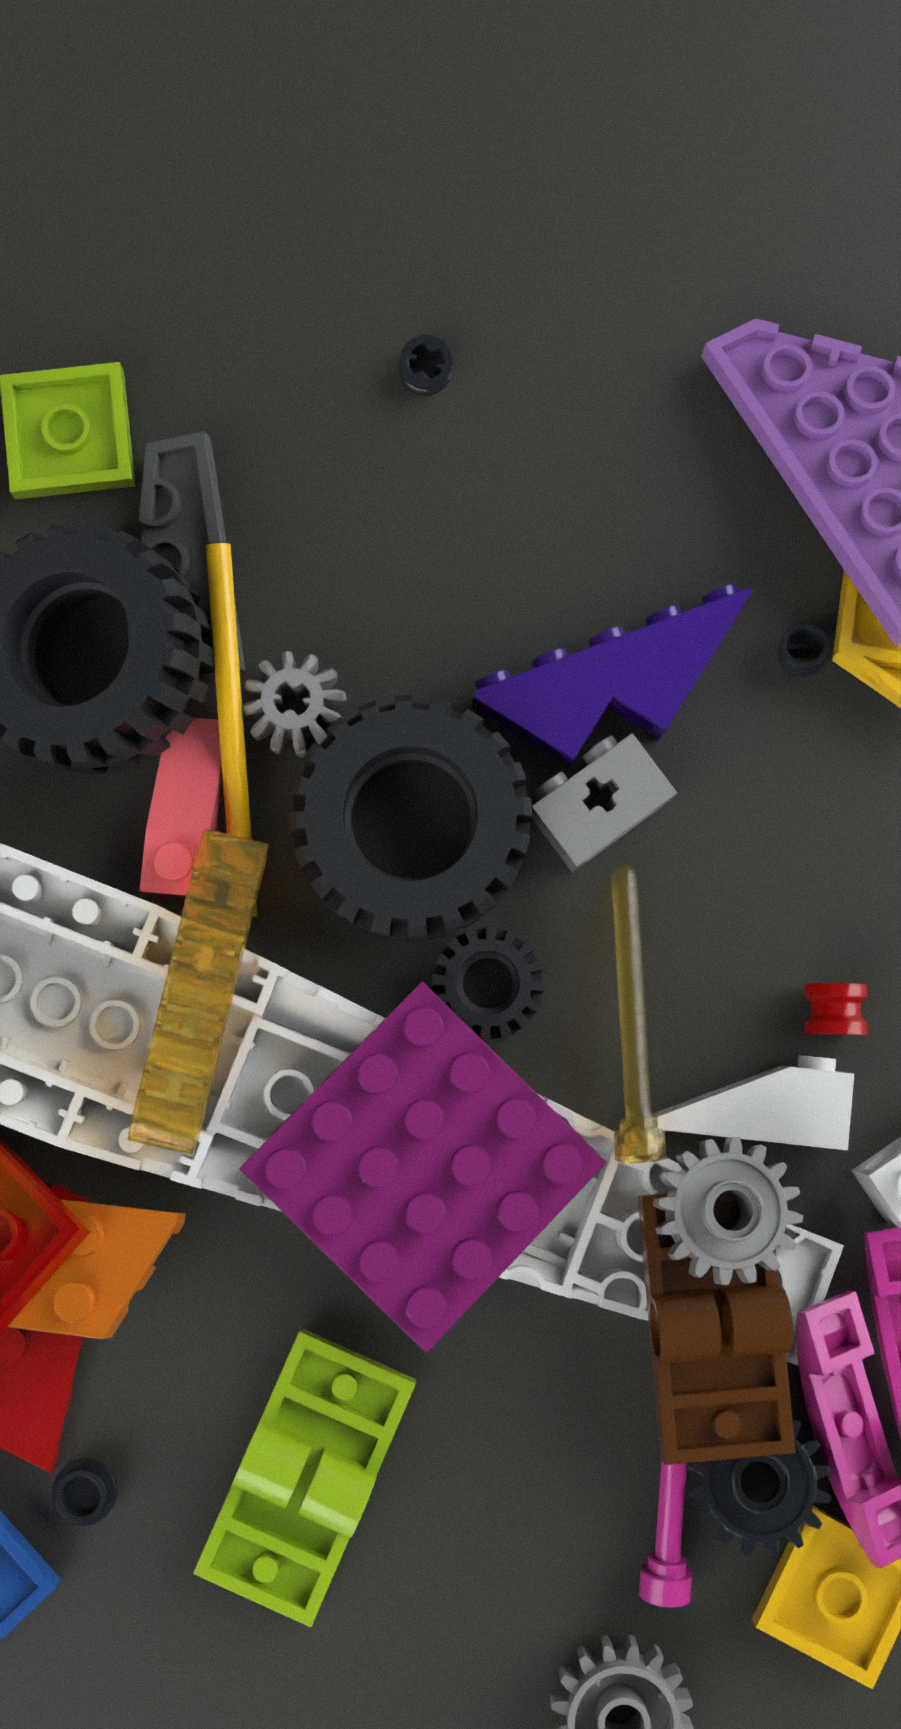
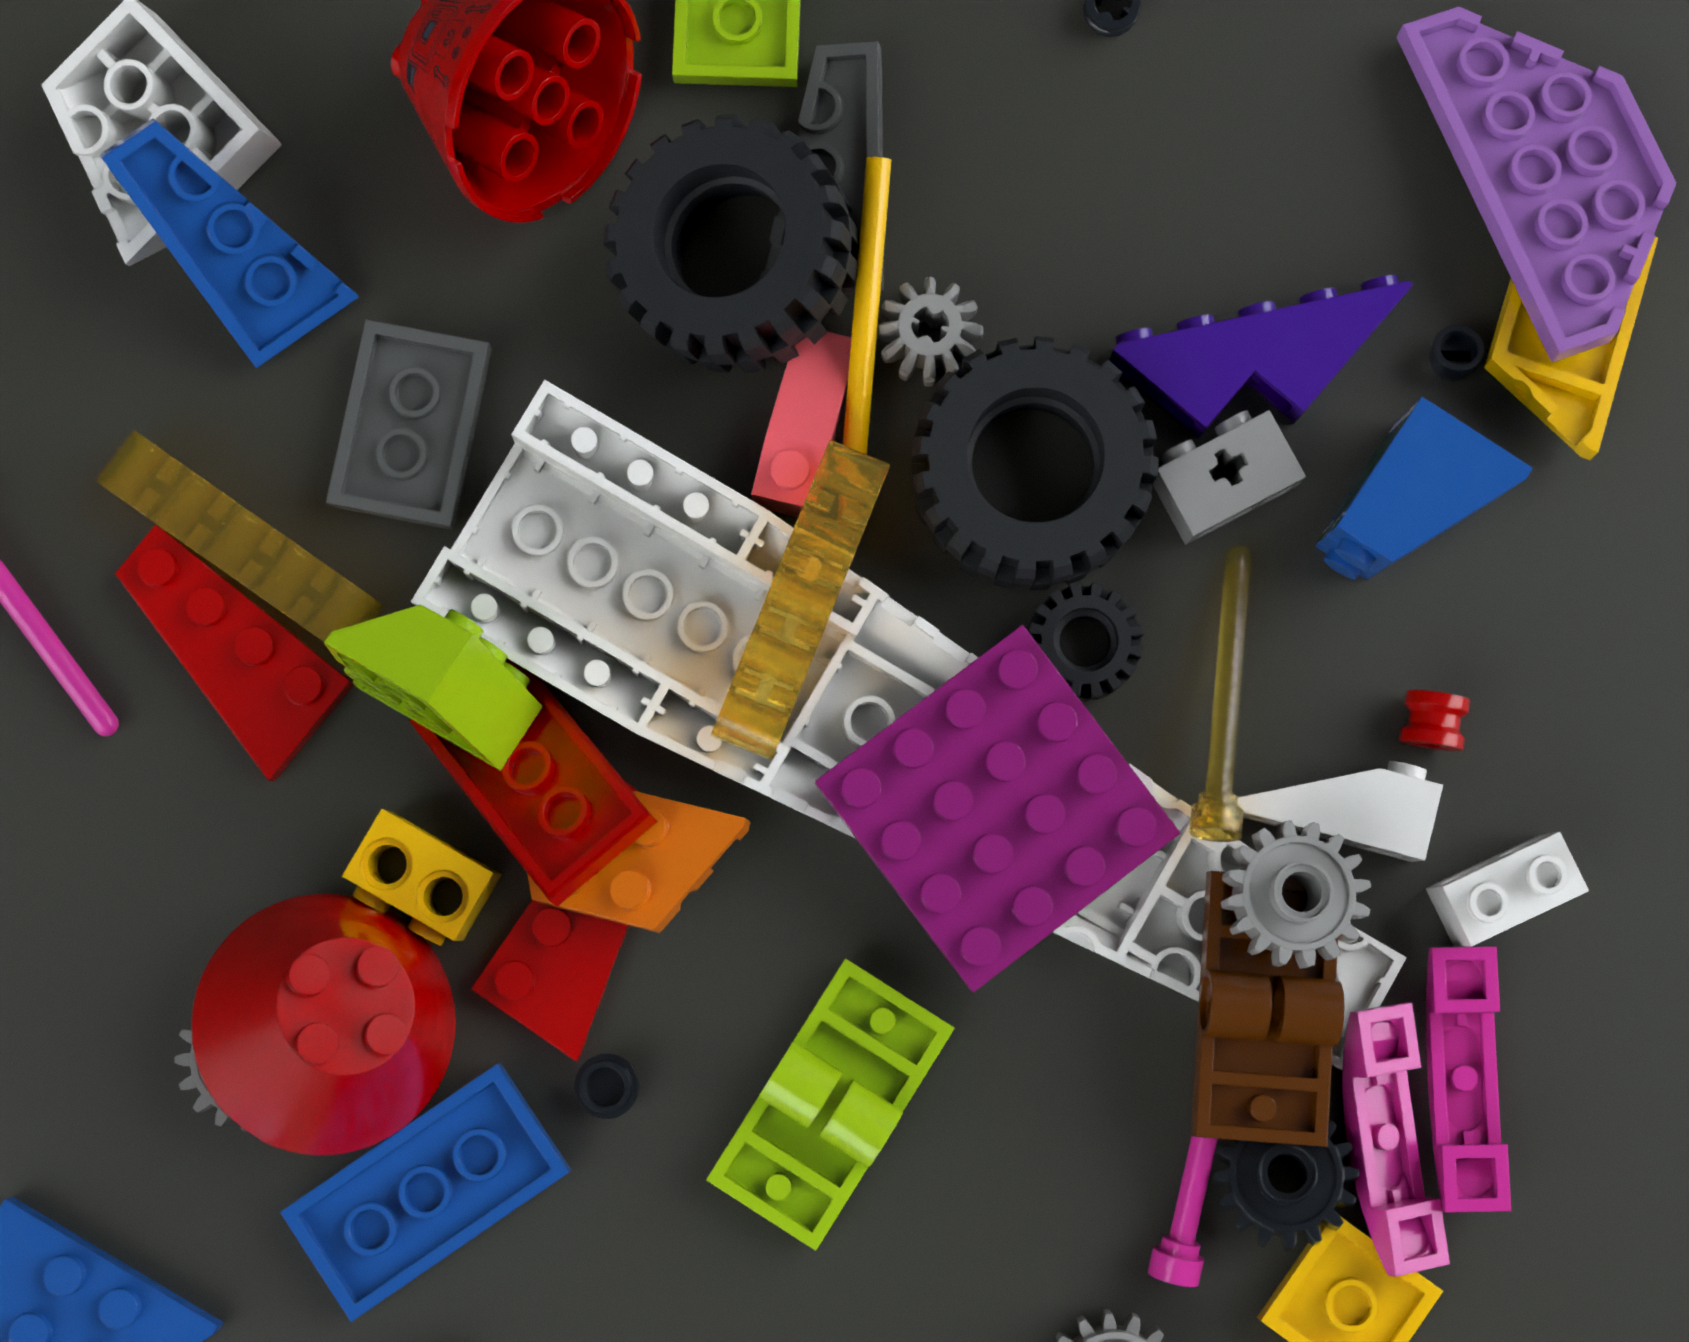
camera: 15 degrees right, 0 degrees up
(784, 790) = (1416, 488): none -> blue slope

